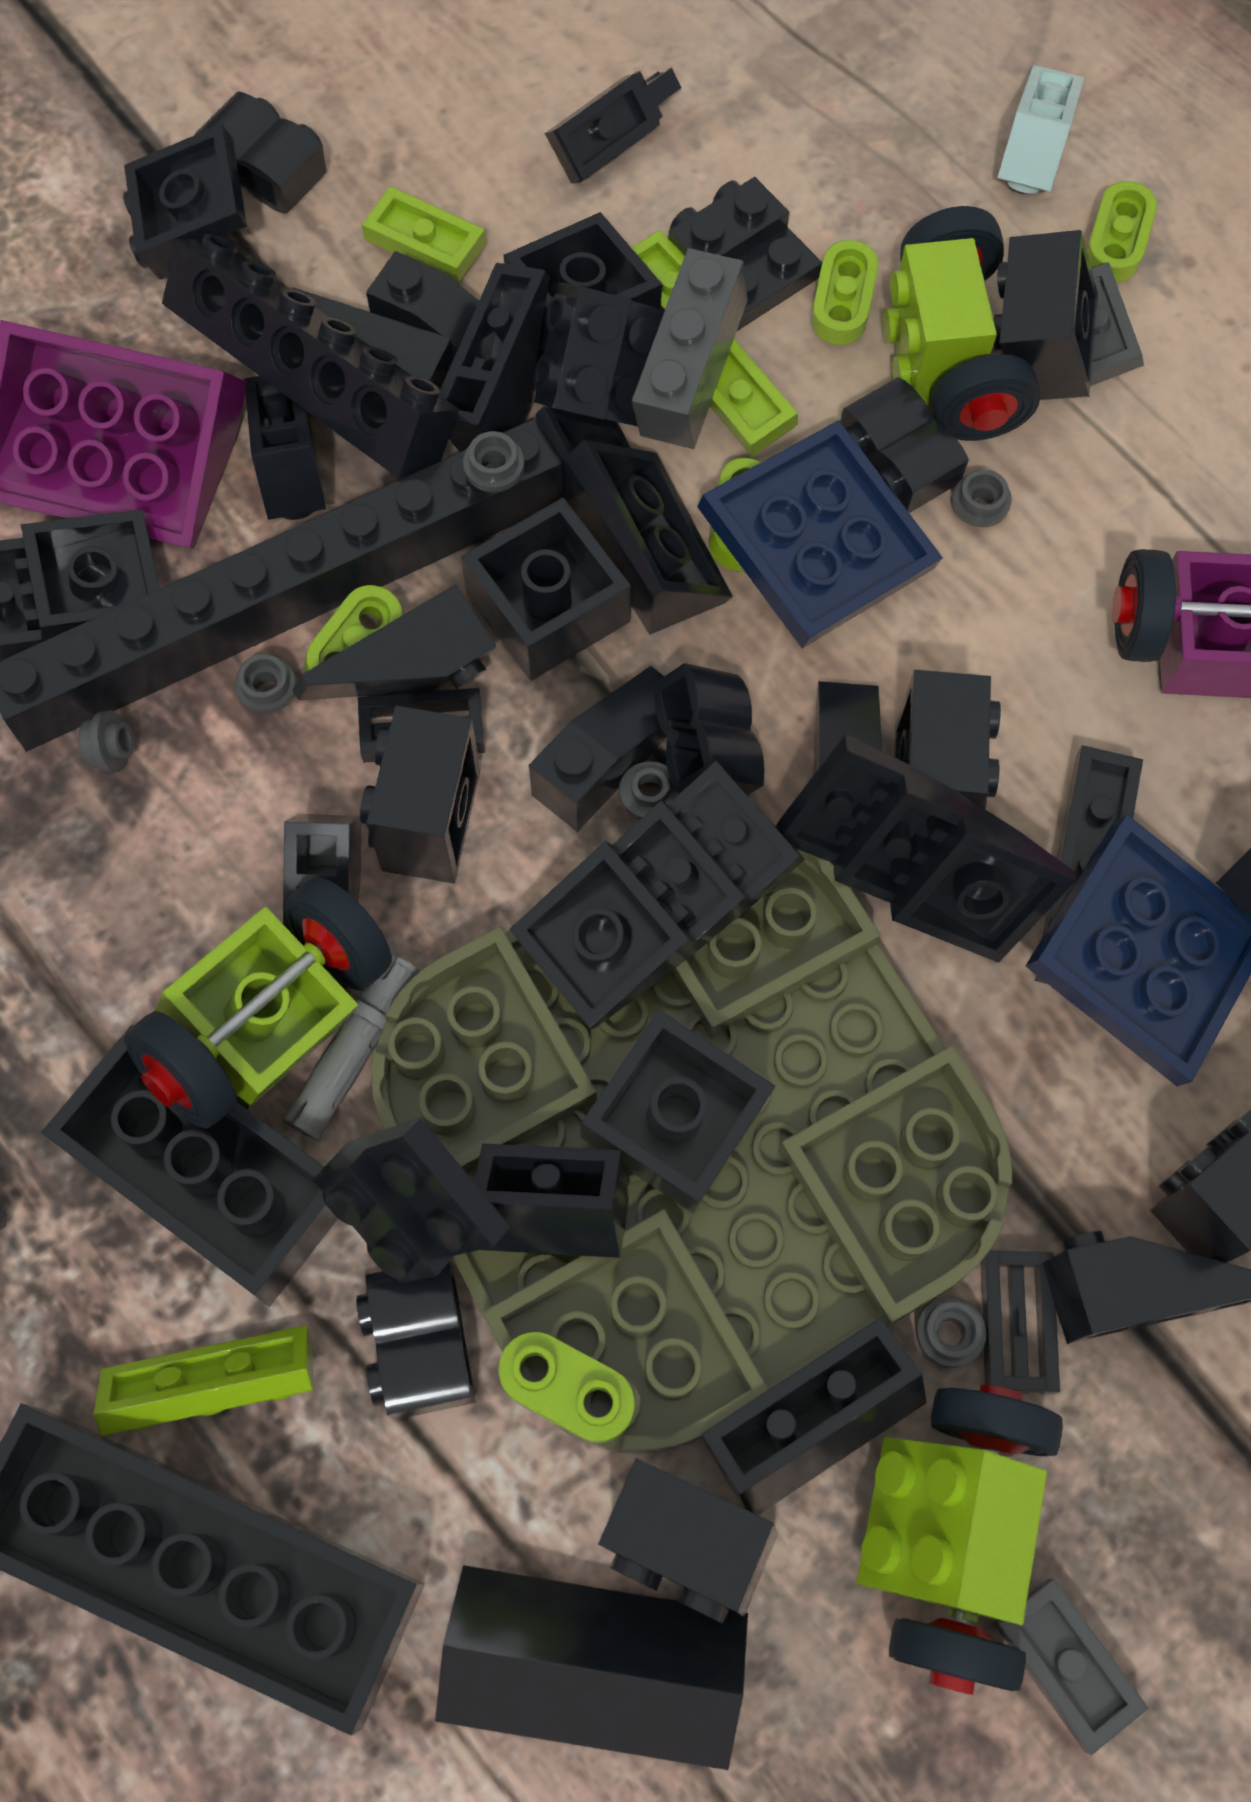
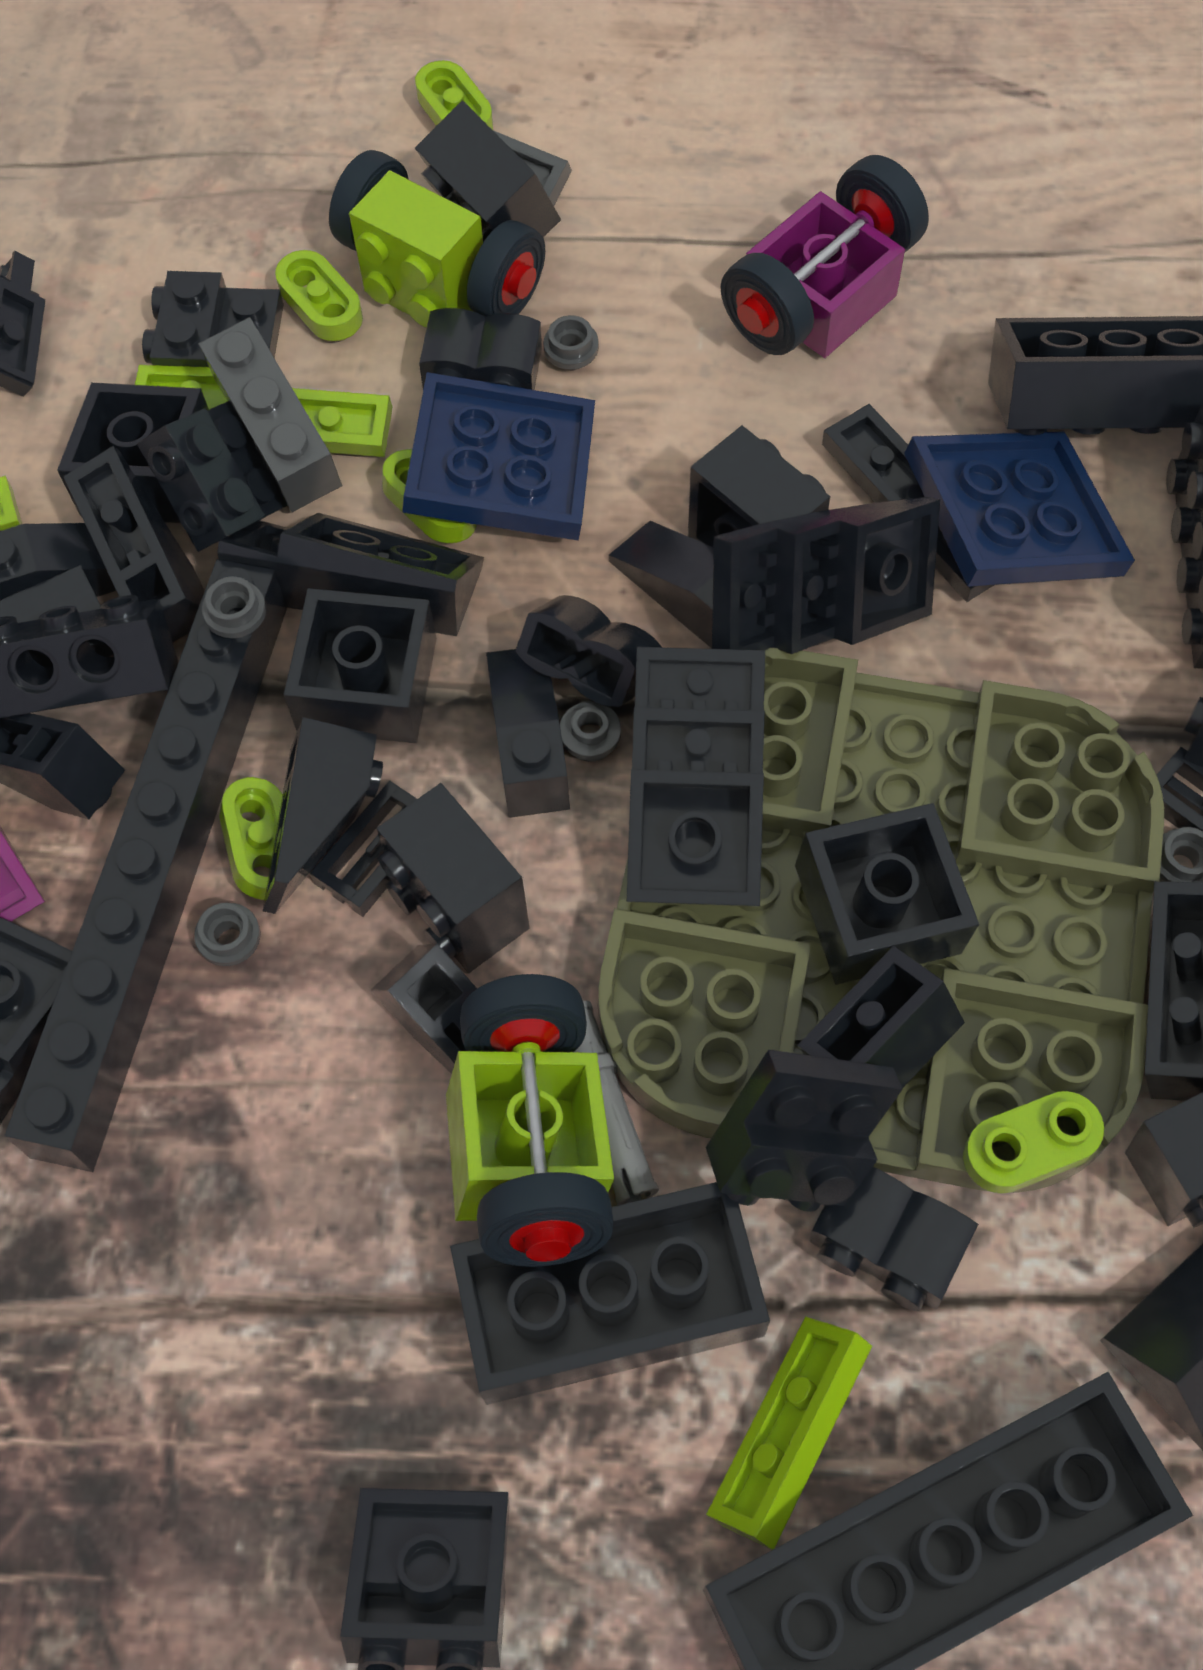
camera: 45 degrees left, 5 degrees down
(106, 741) = (158, 1093): dark grey plate -> none
(1040, 129) = (325, 81): light aqua slope -> none

